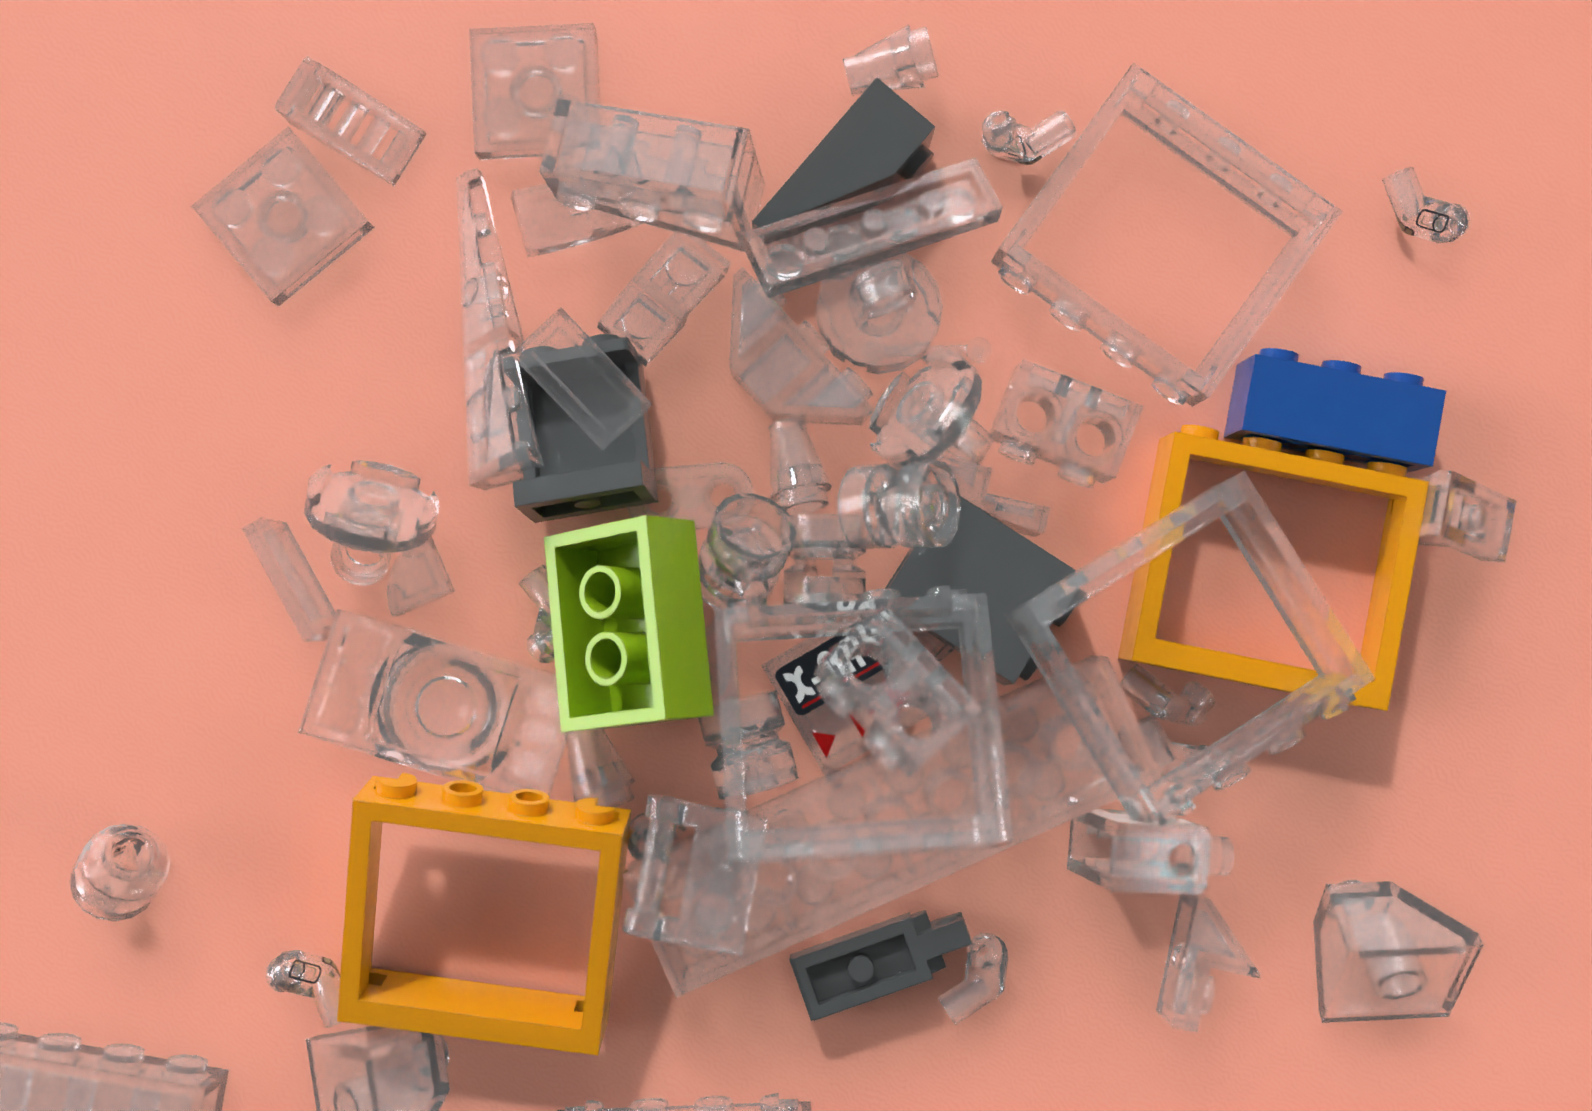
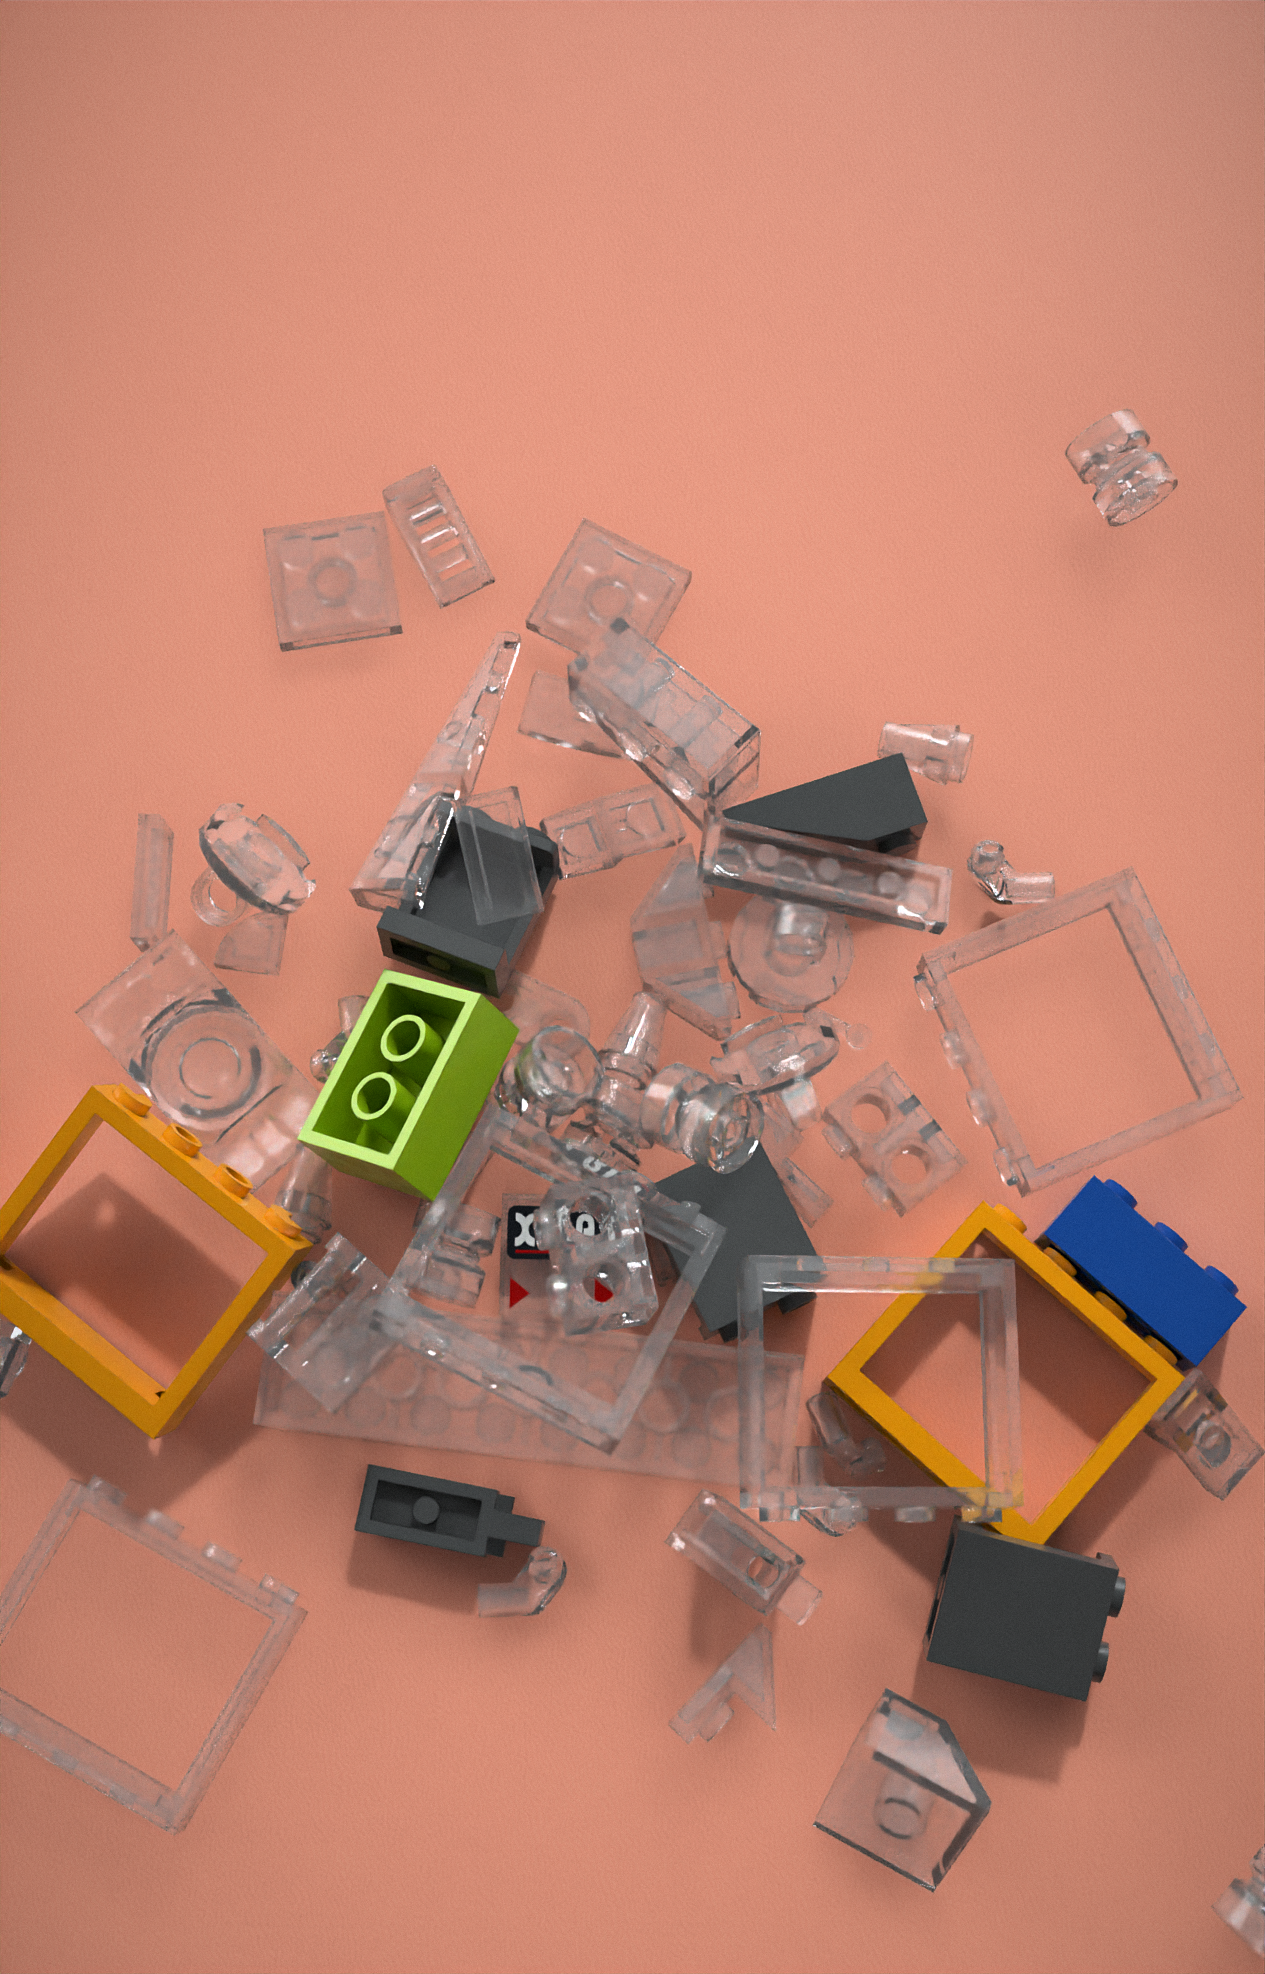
camera: 35 degrees right, 10 degrees down
(1403, 758) = (1022, 1611): none -> dark grey panel

